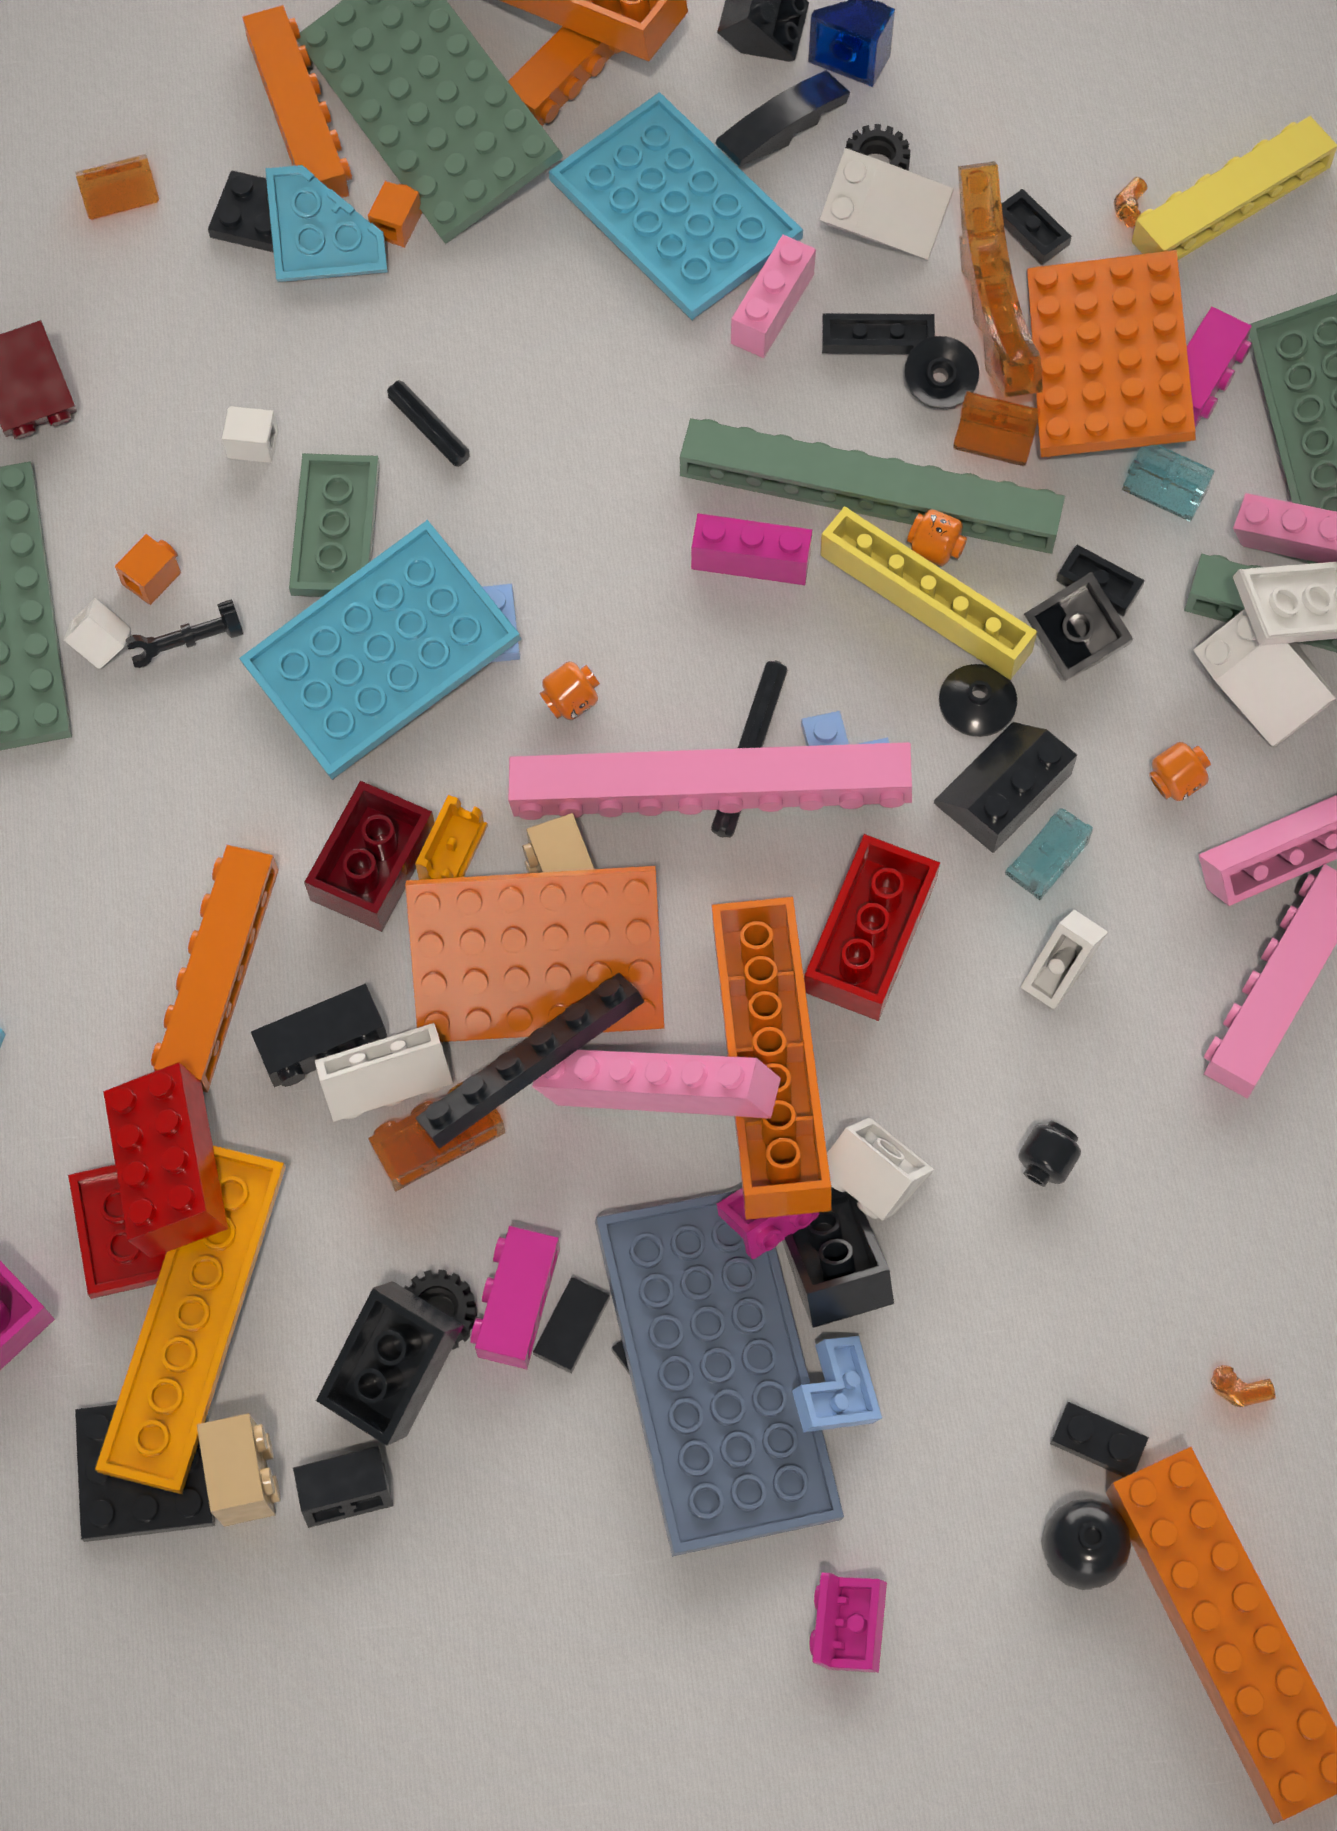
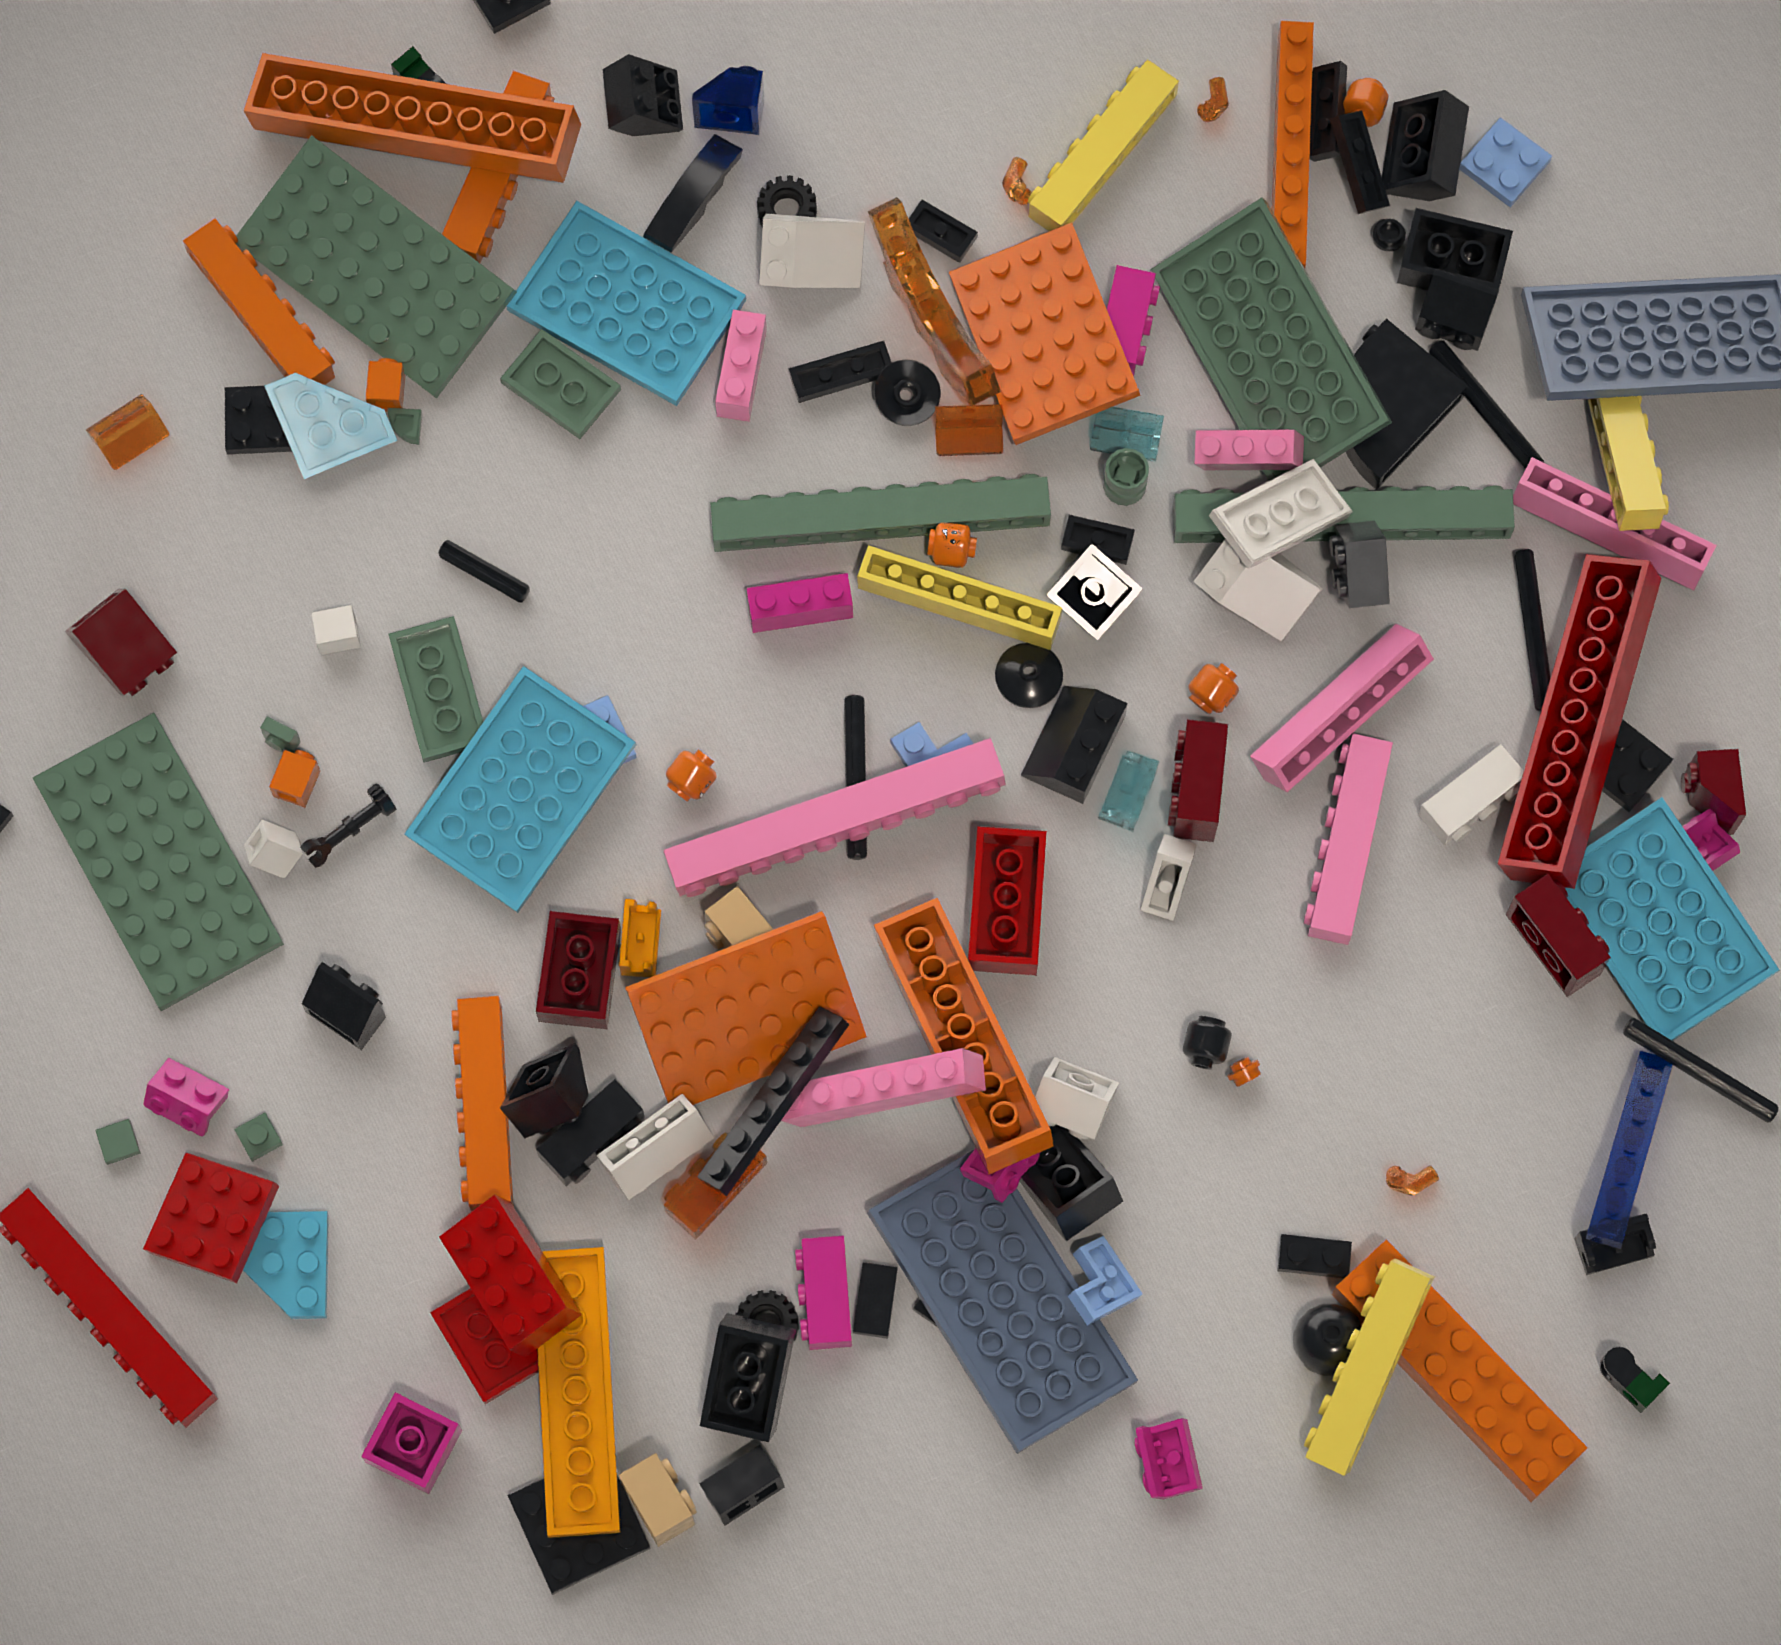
camera: 20 degrees left, 5 degrees up
(104, 814) = (343, 1005): none -> black slope
(149, 520) = (279, 736): none -> sand green plate
(285, 976) = (547, 1092): none -> black slope
(404, 258) = (406, 423): none -> sand green tile
(577, 263) = (560, 384): none -> sand green plate
(1082, 1201) = (1244, 1071): none -> orange plate
(1123, 1591) = (1369, 1366): none -> light yellow brick
(1130, 861) = (1198, 780): none -> dark red brick
(1152, 522) = (1126, 476): none -> sand green wheel

